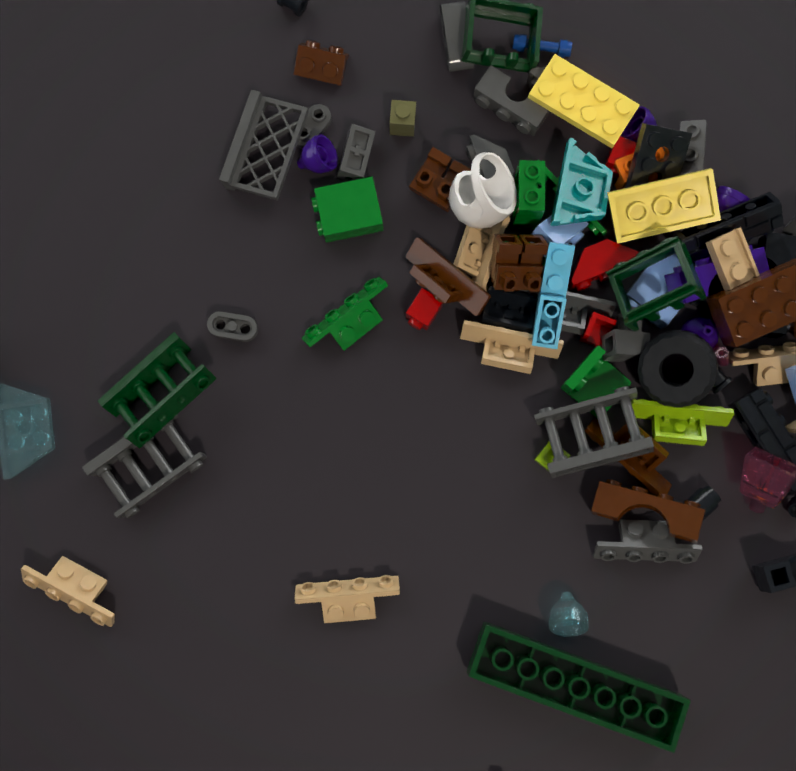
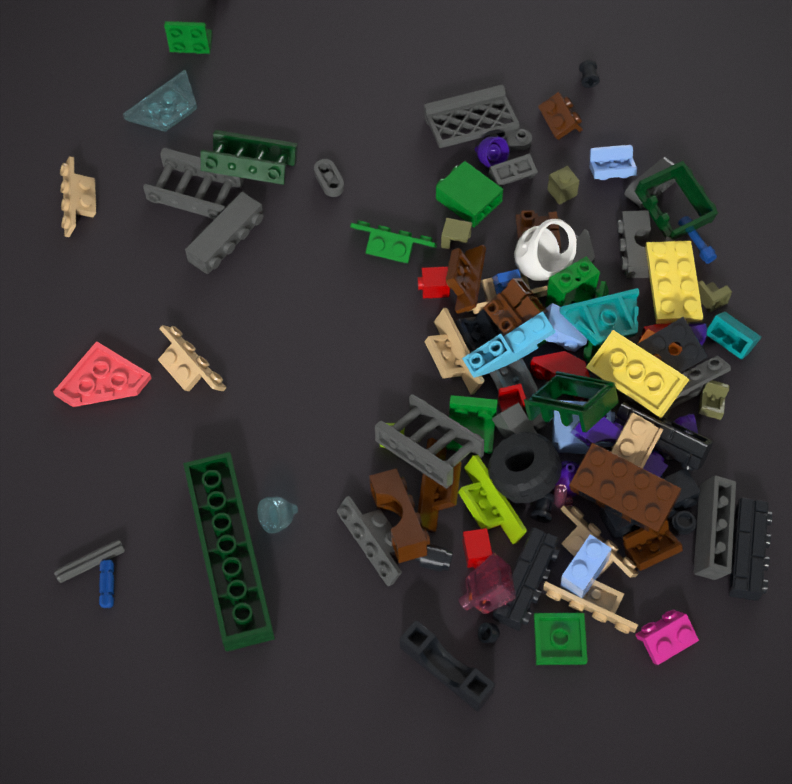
camera: 55 degrees right, 20 degrees down
(226, 468) = (224, 233): none -> dark grey brick
(306, 690) = (101, 378): none -> coral plate
(385, 253) = (455, 230): none -> olive panel
(410, 56) = (612, 162): none -> light blue bracket
(479, 247) = (502, 279): none -> blue bracket
(611, 76) = (712, 296): none -> olive panel
(661, 90) = (732, 335): none -> teal brick
(716, 158) = (713, 399): none -> olive bracket
(717, 462) = (476, 547): none -> red brick

